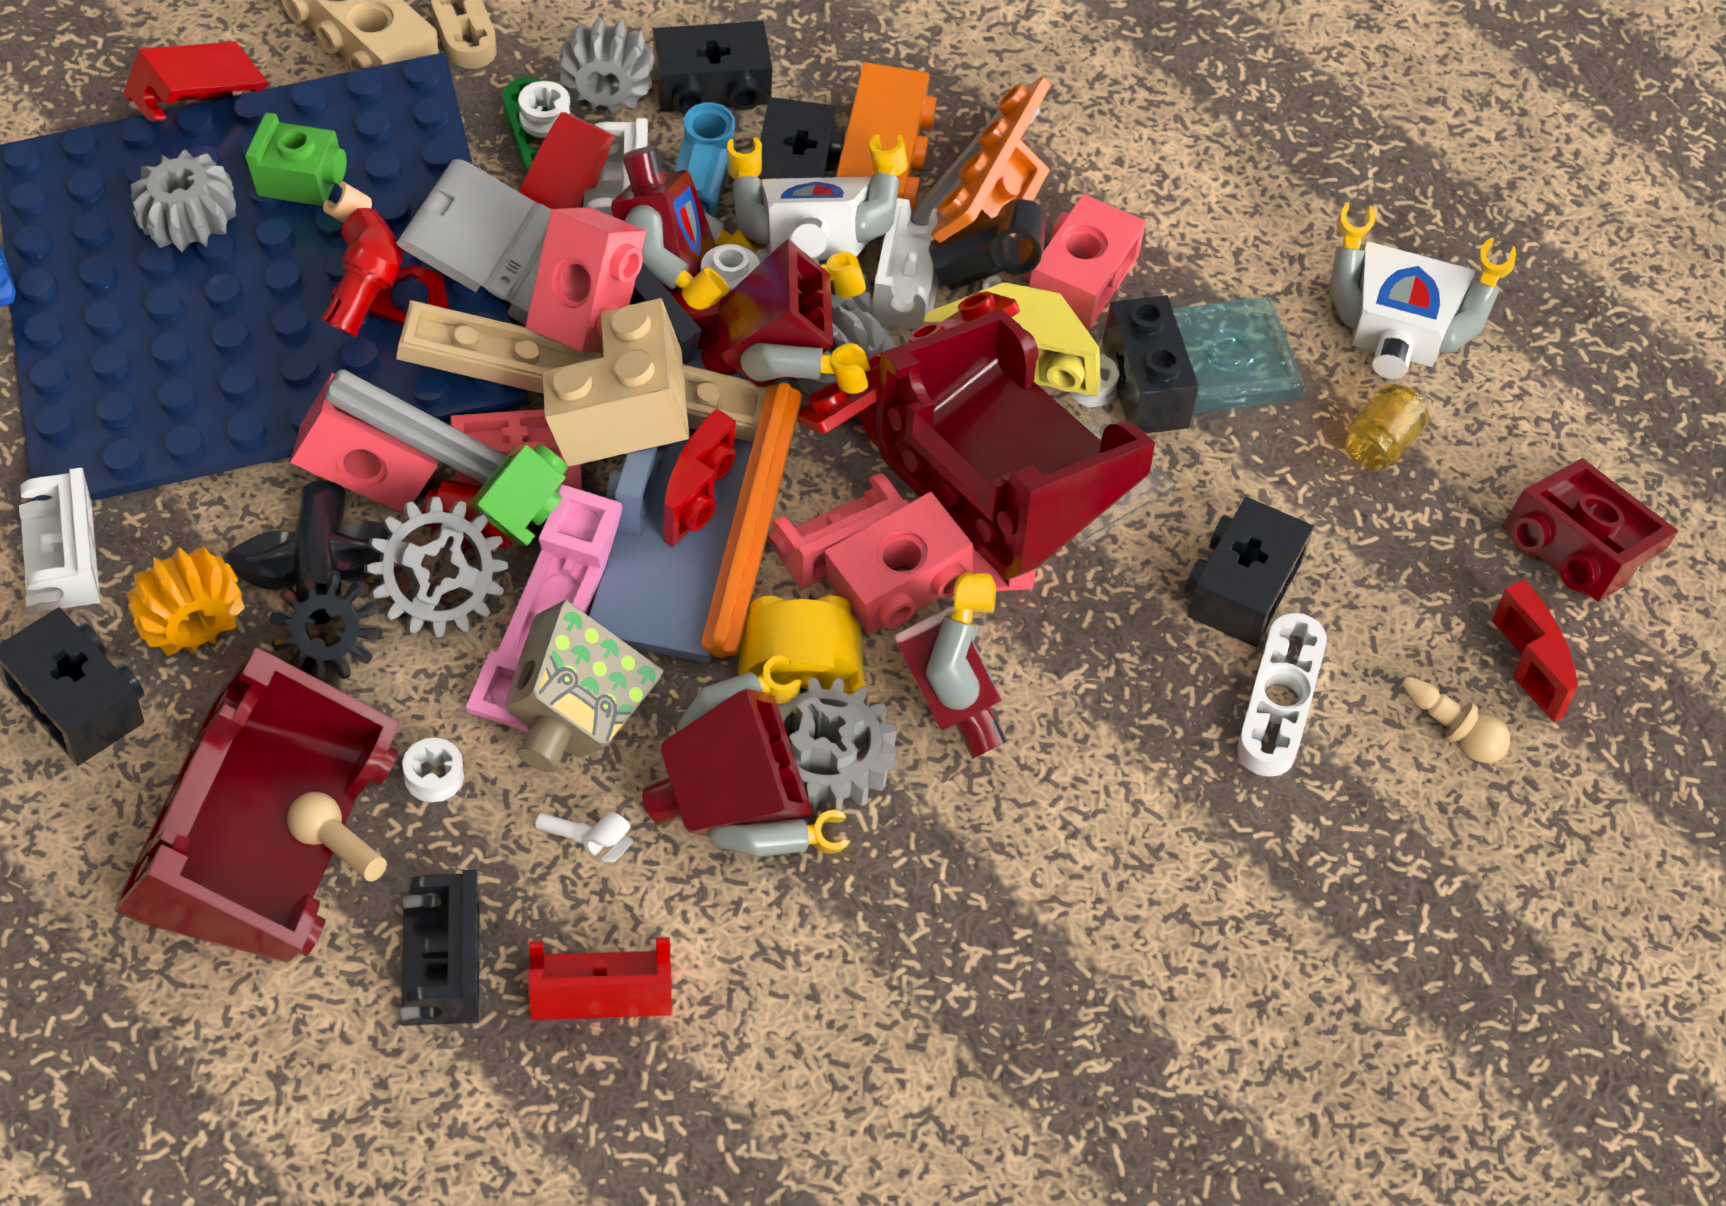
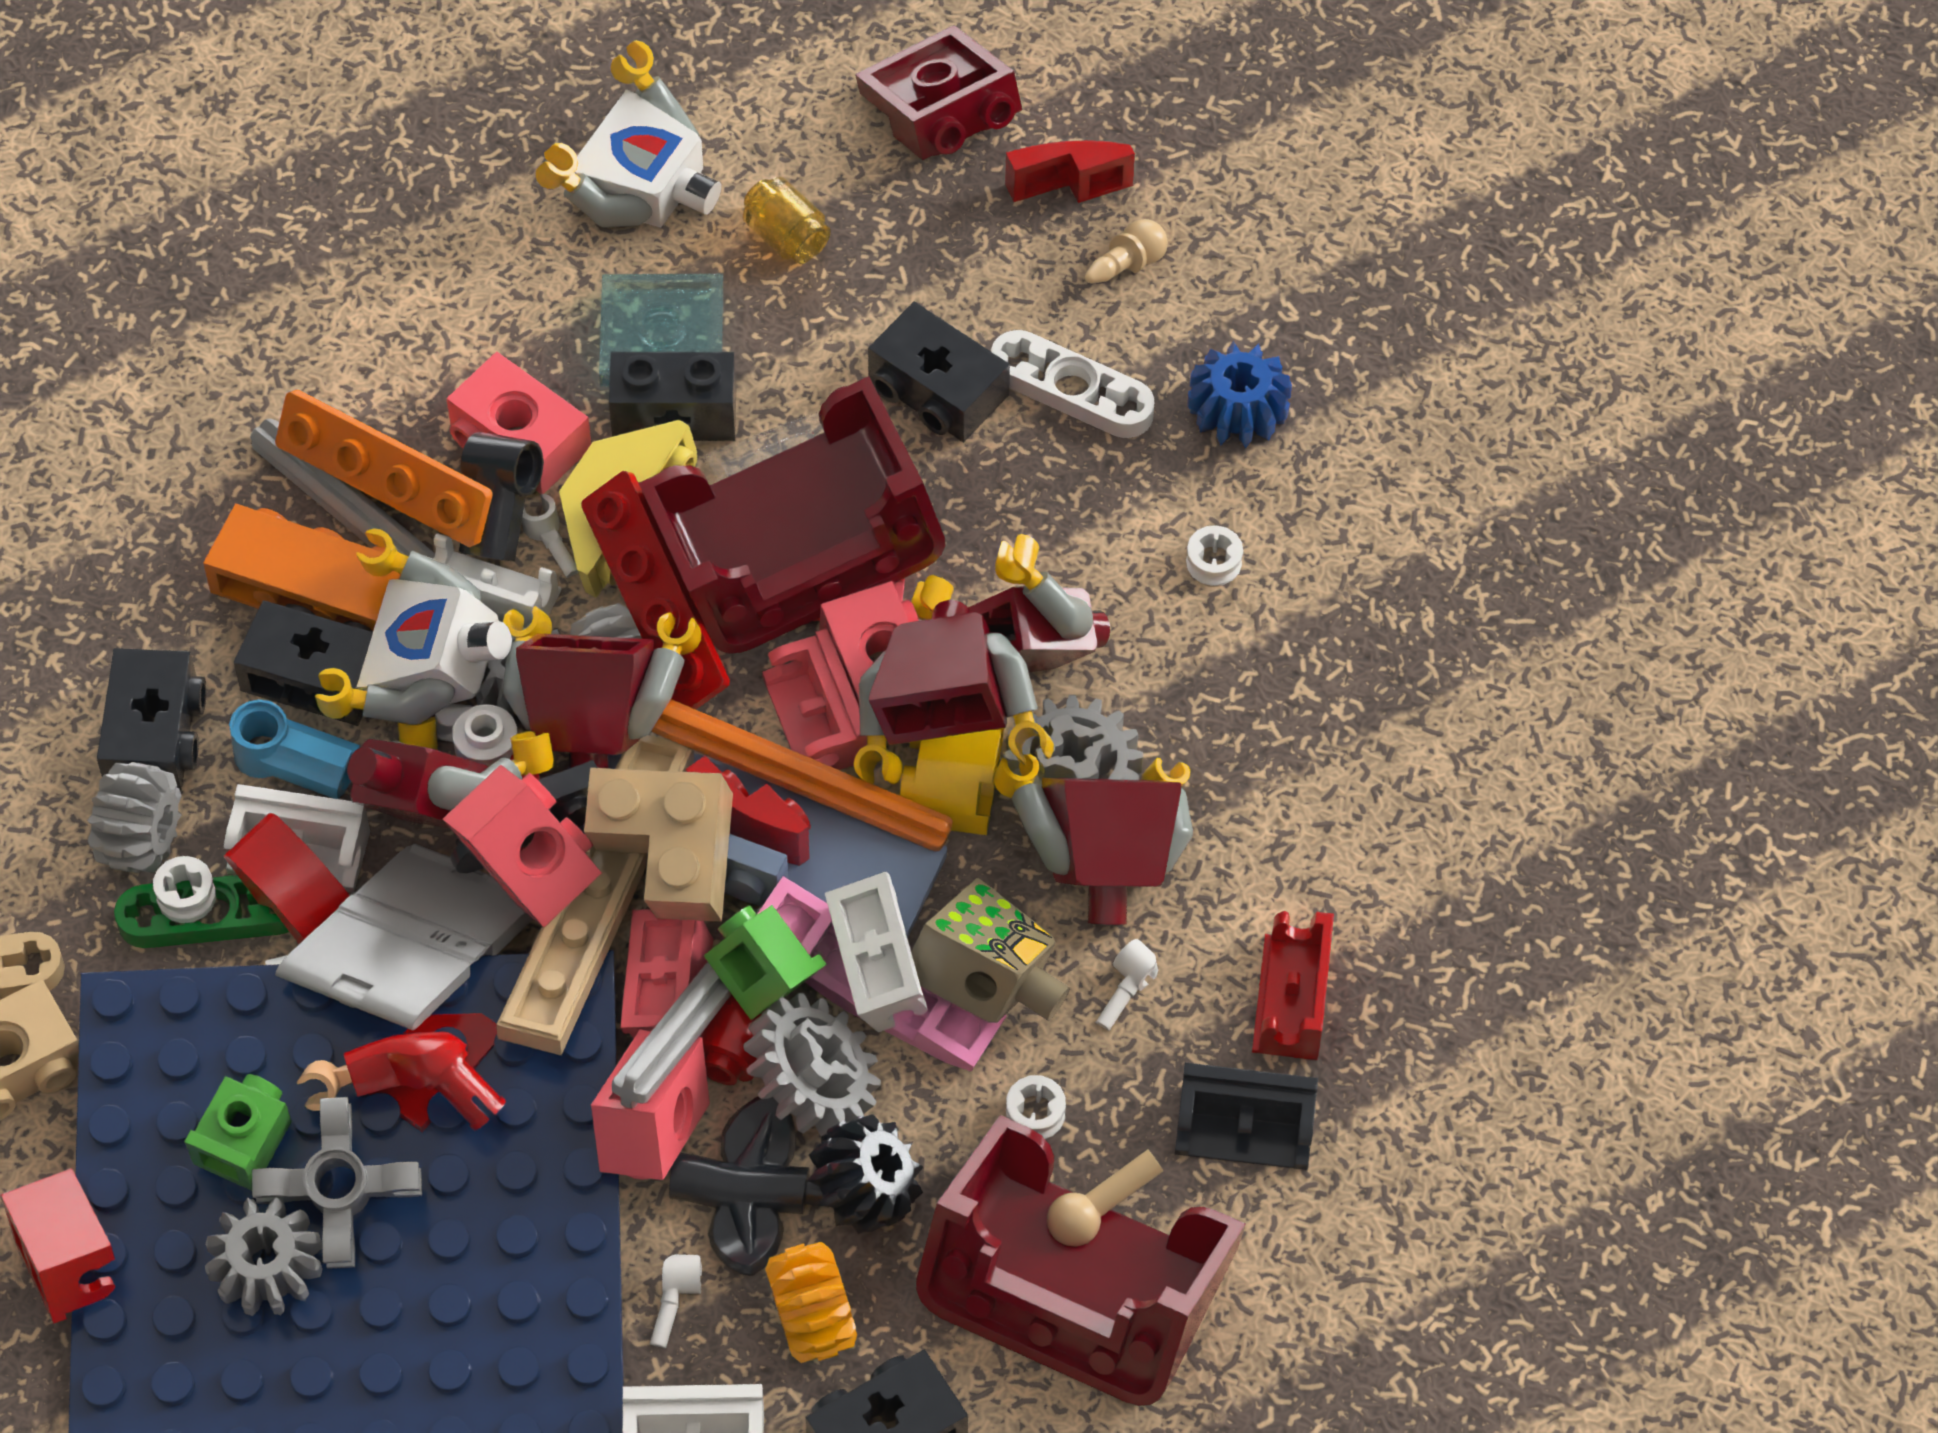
camera: 75 degrees left, 5 degrees up
(219, 509) = (679, 1276): none -> white hand
(252, 230) = (384, 1180): none -> light grey pin
(547, 577) = (875, 951): none -> white hinge
(844, 587) = (943, 682): none -> dark red torso
(1117, 863) = (1212, 573): none -> white bush
(1288, 841) = (1239, 394): none -> blue gear

